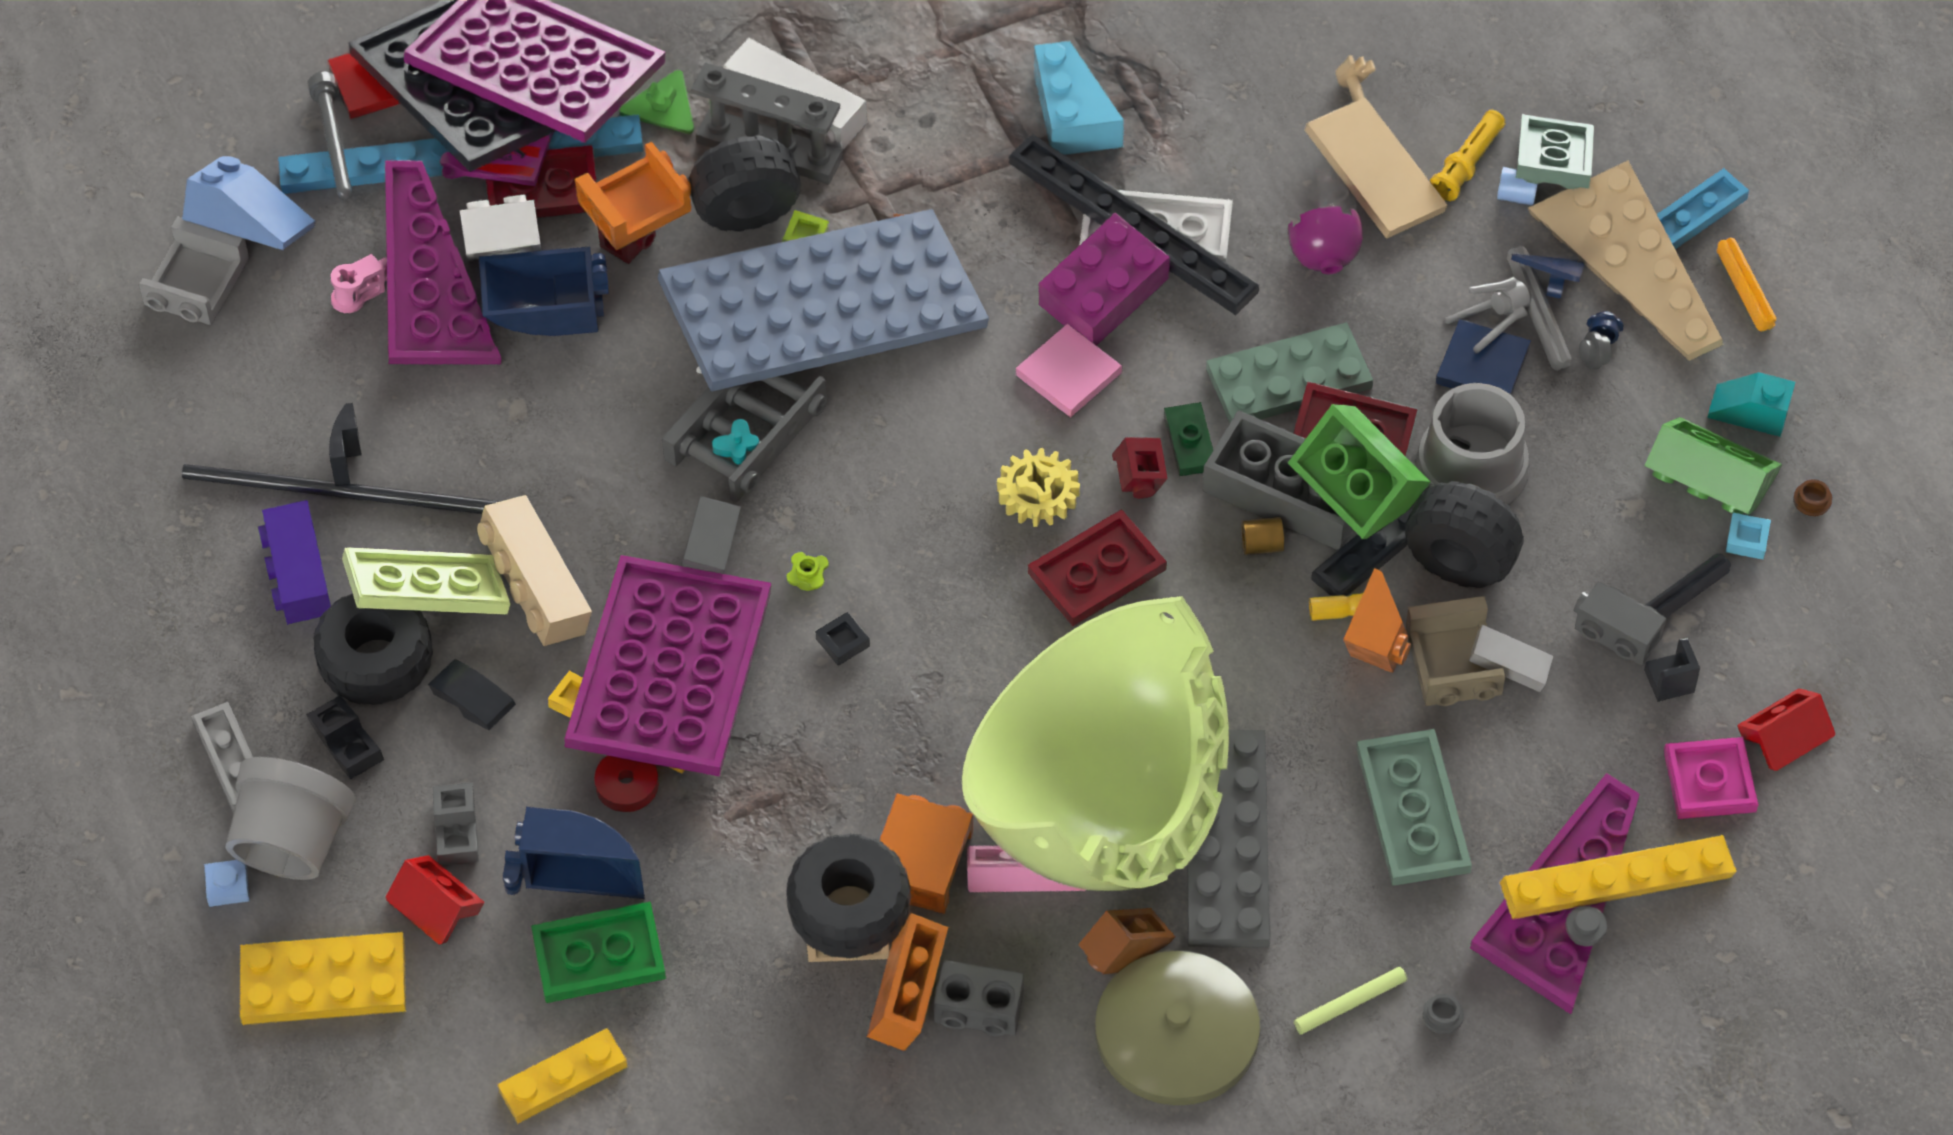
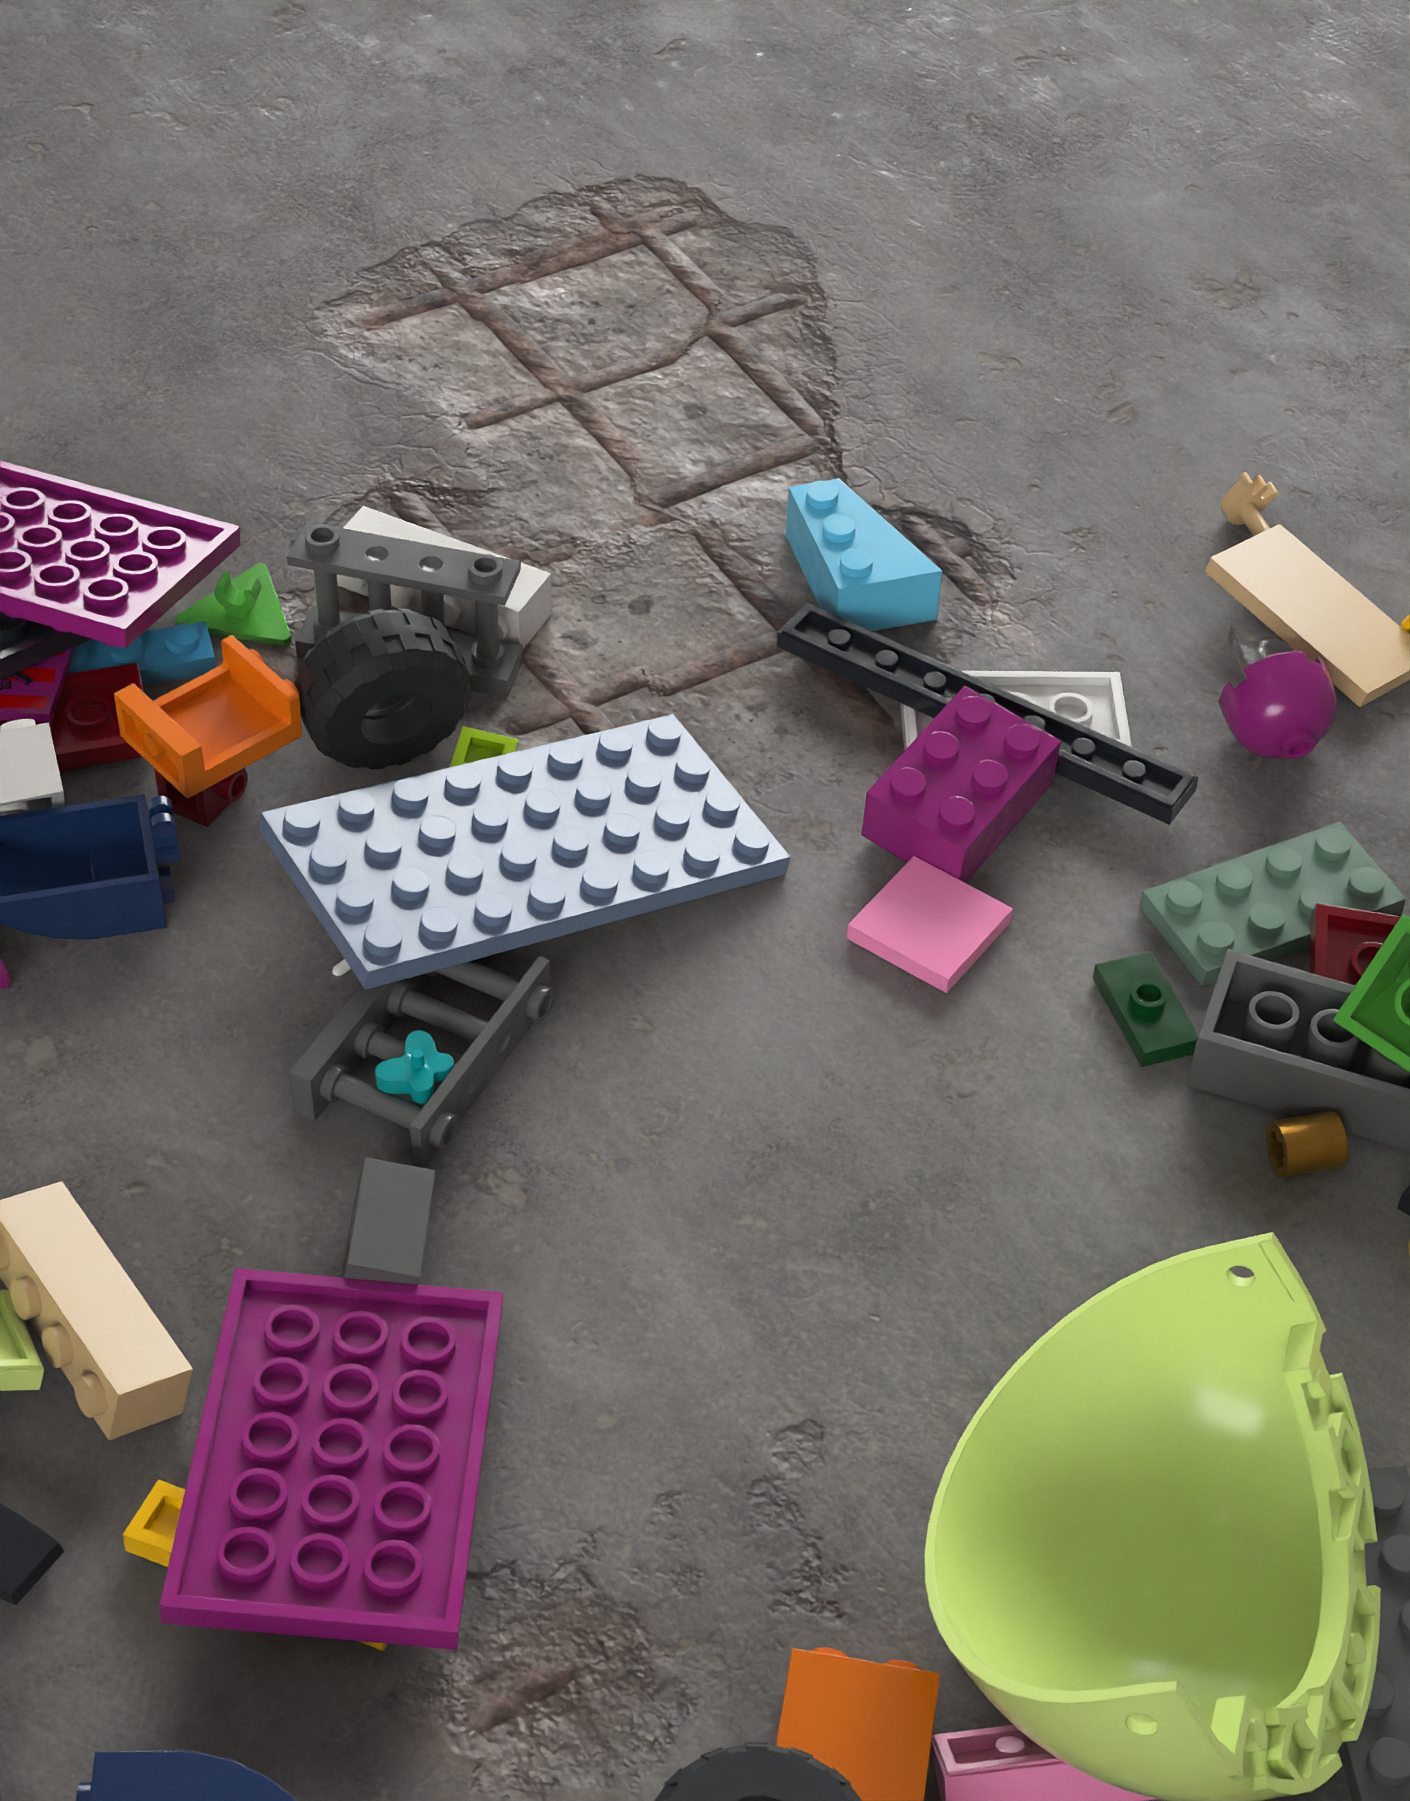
camera: 10 degrees left, 10 degrees down
(627, 796) = (284, 1705): red piece -> none
(807, 580) = (561, 1283): lime plate -> none
(842, 638) = (640, 1377): black plate -> none
(1038, 487) = (924, 1100): light yellow gear -> none
(1097, 567) = (1048, 1219): dark red plate -> none
(1140, 466) = (1083, 1051): dark red brick -> none

